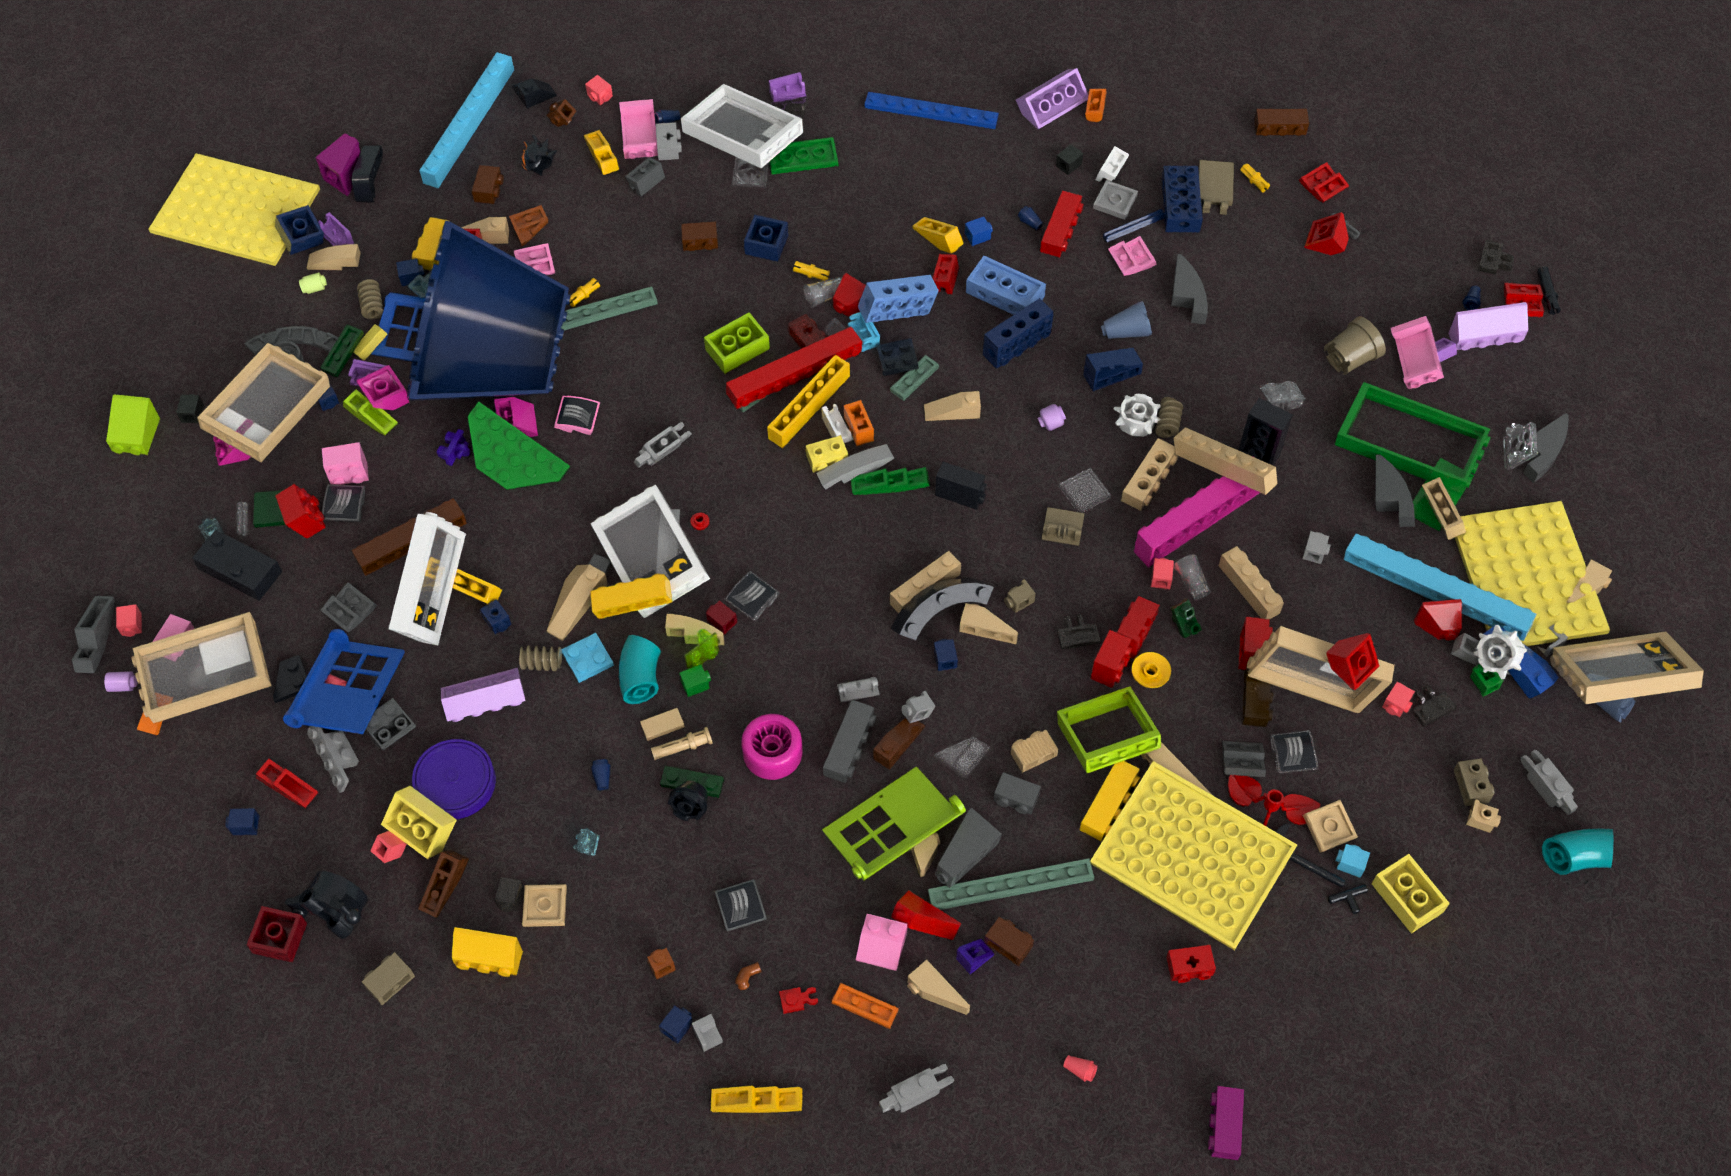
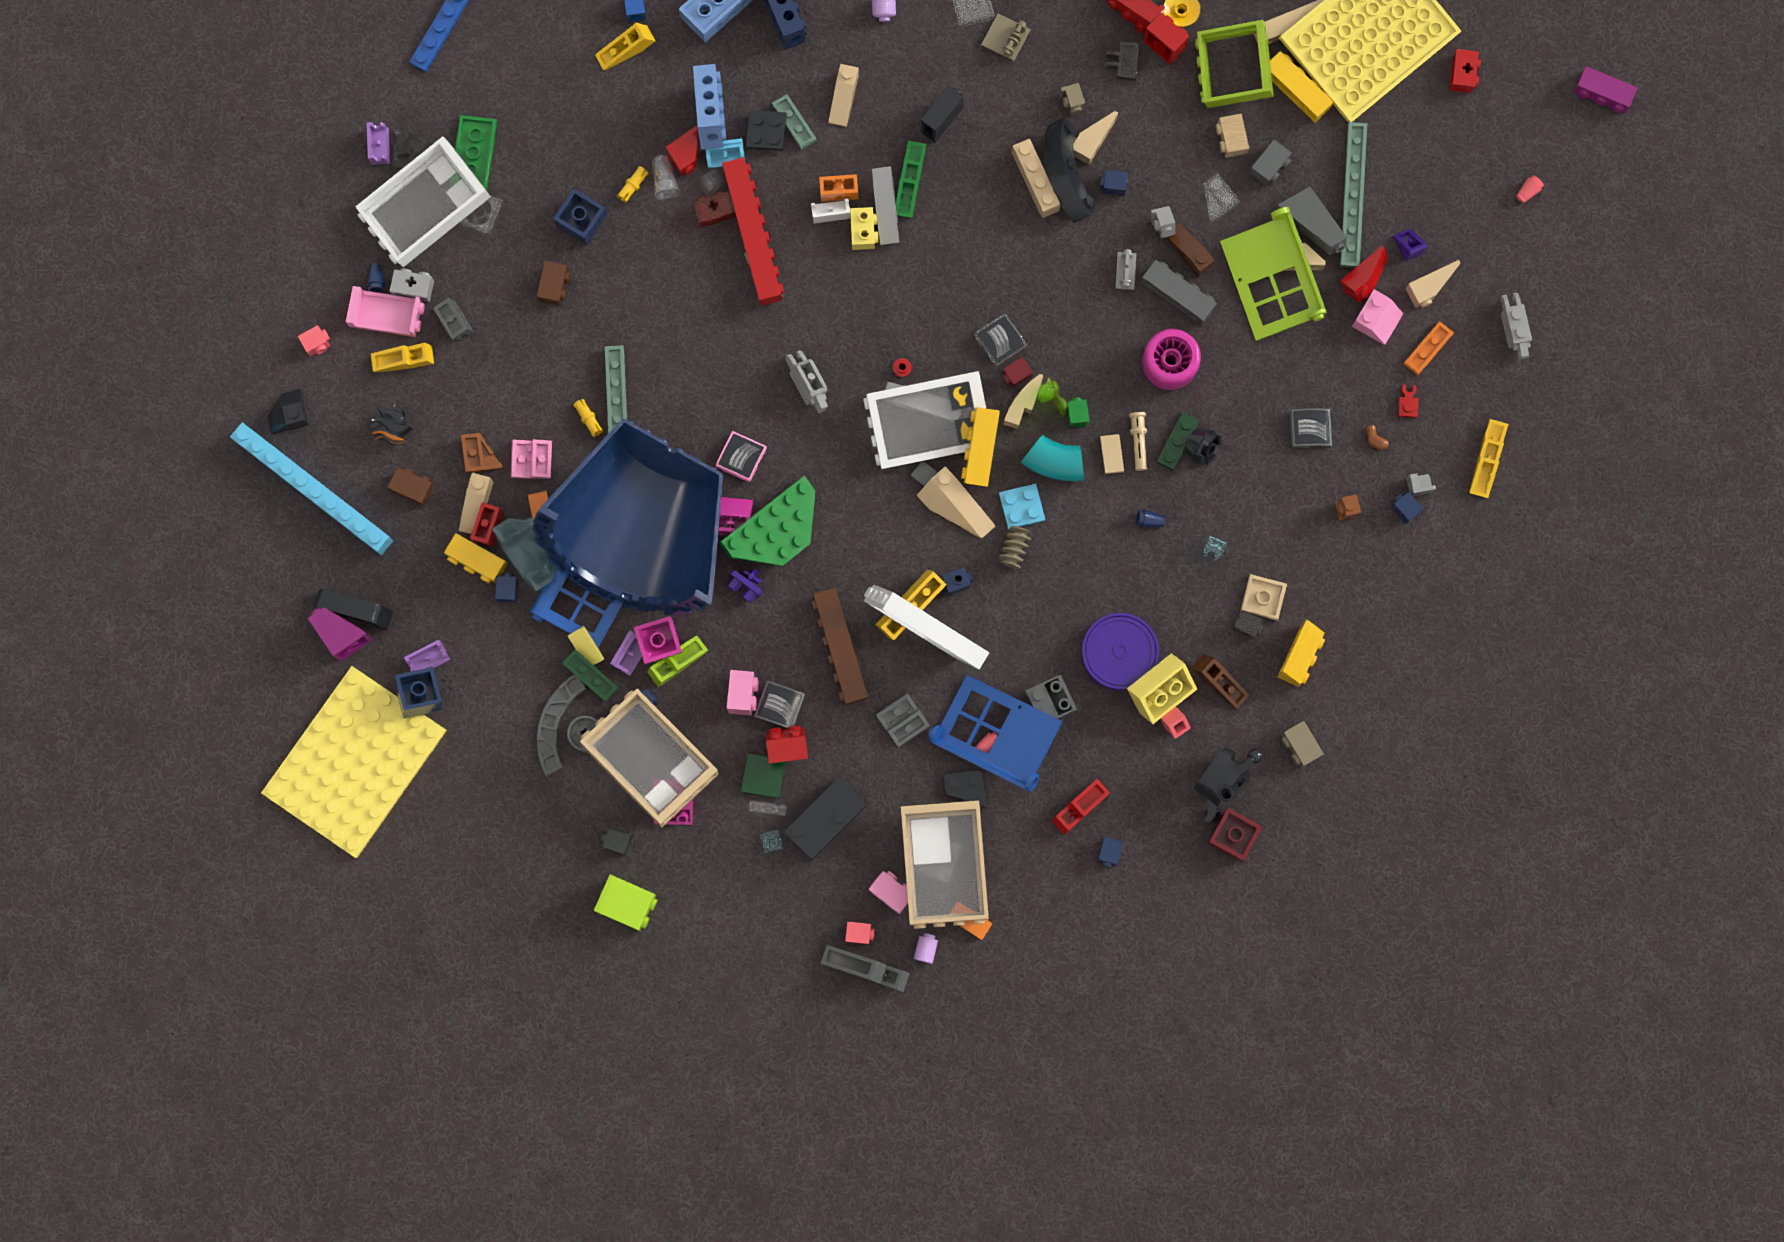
camera: 75 degrees left, 20 degrees up
(313, 283) = (488, 692): yellowish green brick -> none
(334, 257) = (461, 665): tan slope -> none
(335, 753) = (1065, 756): light grey bracket -> none
(370, 299) = (532, 636): dark tan piece -> none
(482, 694) = (1036, 609): lavender slope -> none
(561, 113) = (337, 387): reddish brown brick -> none
(736, 343) = (705, 279): lime brick -> none
(808, 401) = (798, 228): yellow brick -> none
(946, 272) = (678, 53): red hinge -> none
(1009, 940) = (1405, 212): reddish brown brick -> none

